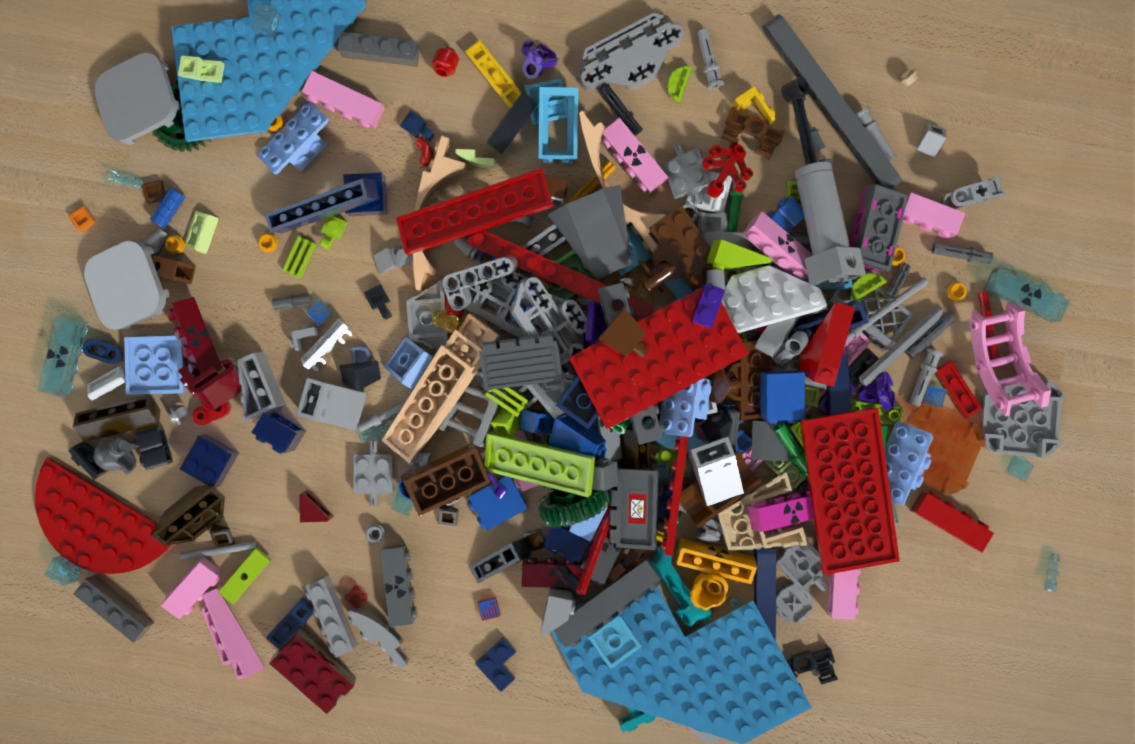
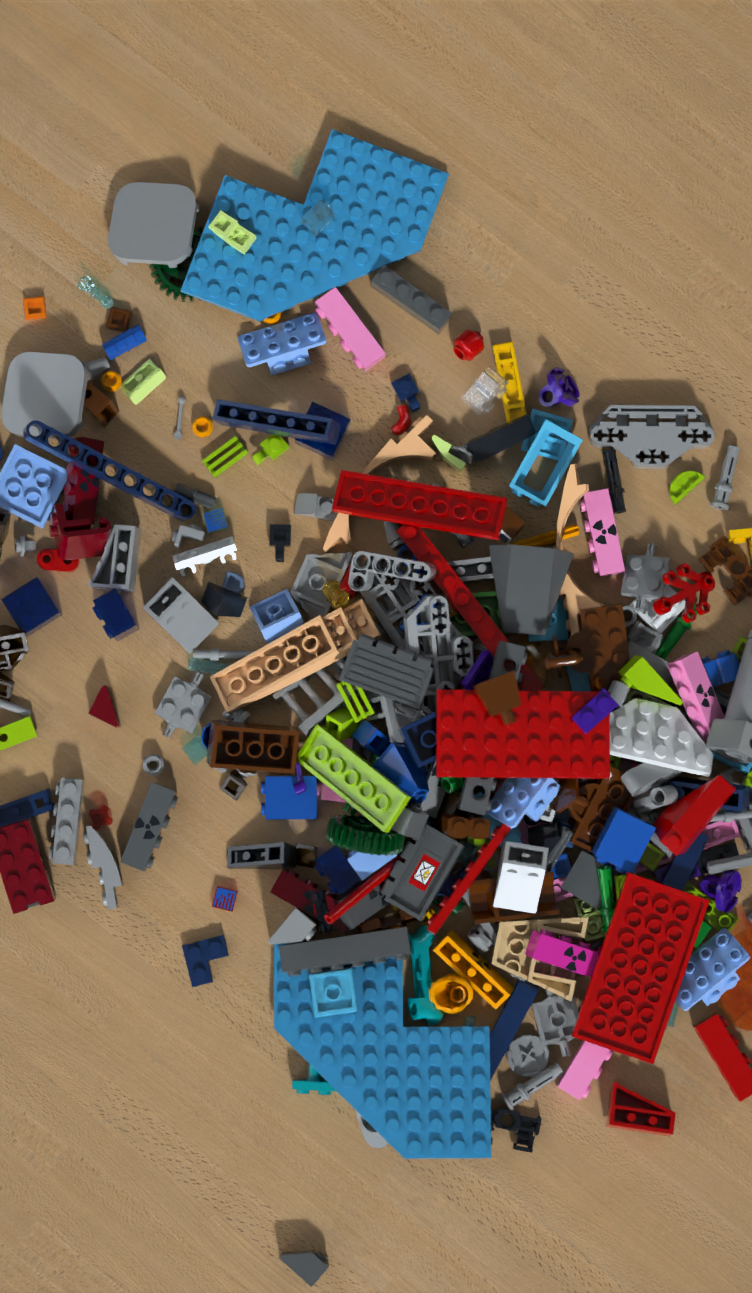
camera: 25 degrees right, 5 degrees down
(199, 314) = (98, 470): none -> dark blue beam
(252, 259) = (181, 400): none -> light grey hinge
(477, 91) = (484, 391): none -> clear brick
(487, 152) = (462, 453): none -> light grey plant
(647, 457) = (461, 827): none -> reddish brown brick
(805, 633) = (524, 1090): none -> light grey pin
(905, 605) = (635, 1113): none -> red wedge

